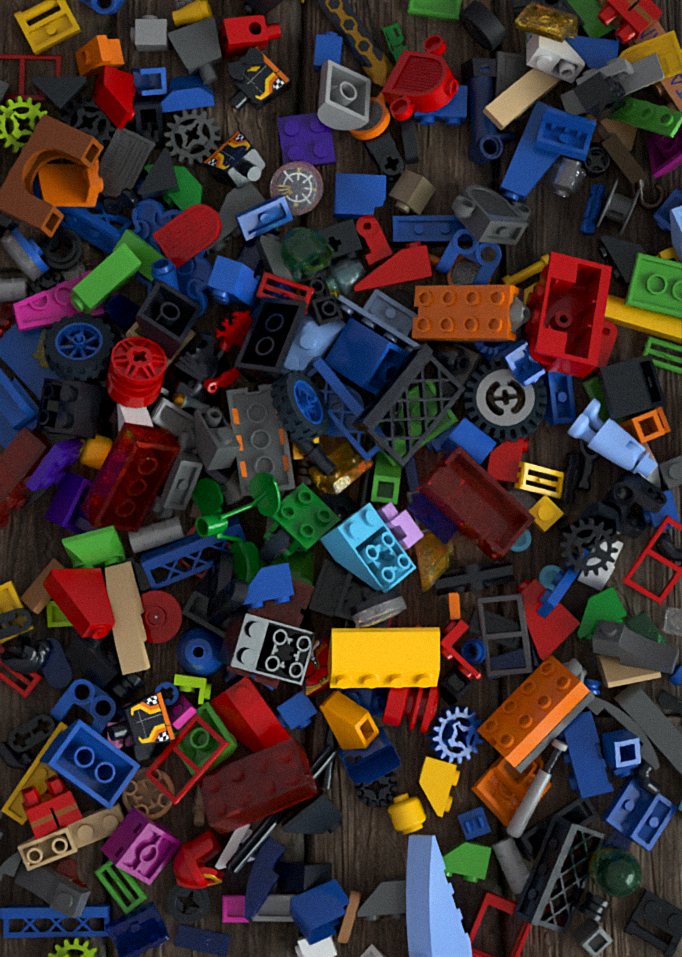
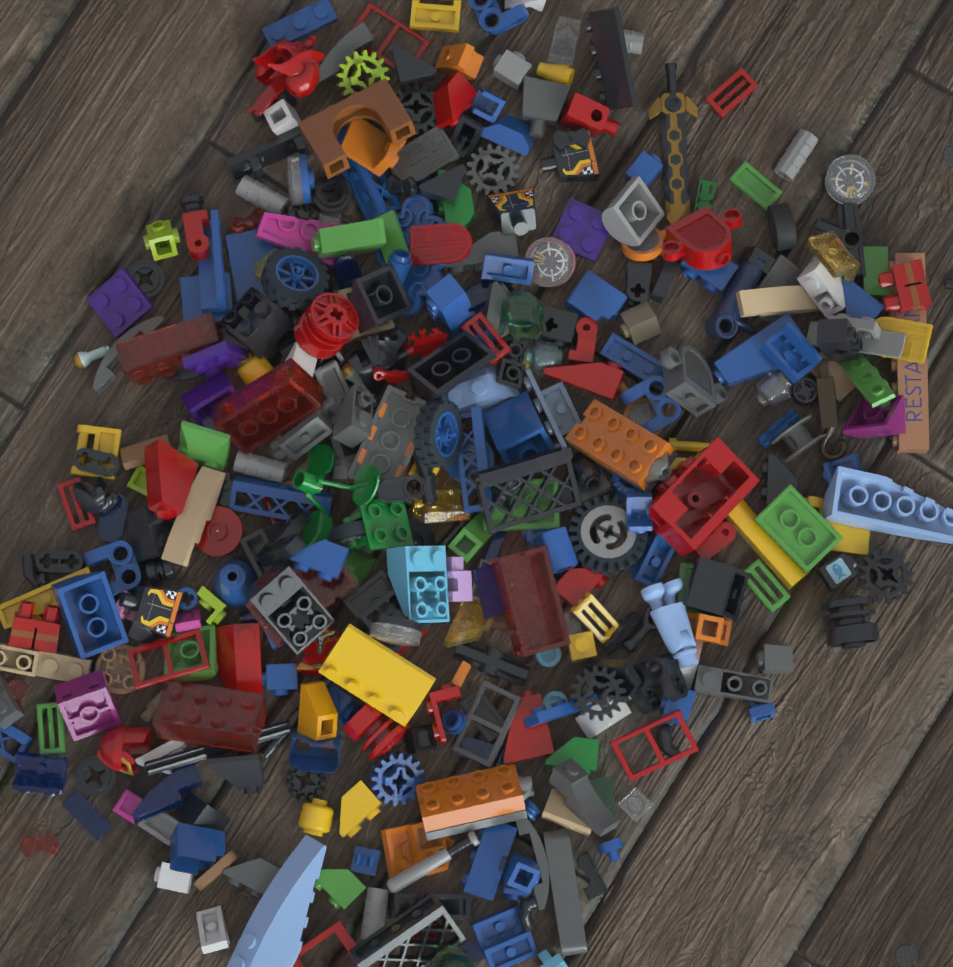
camera: 30 degrees right, 5 degrees down
(293, 481) = (395, 489): none -> black piece

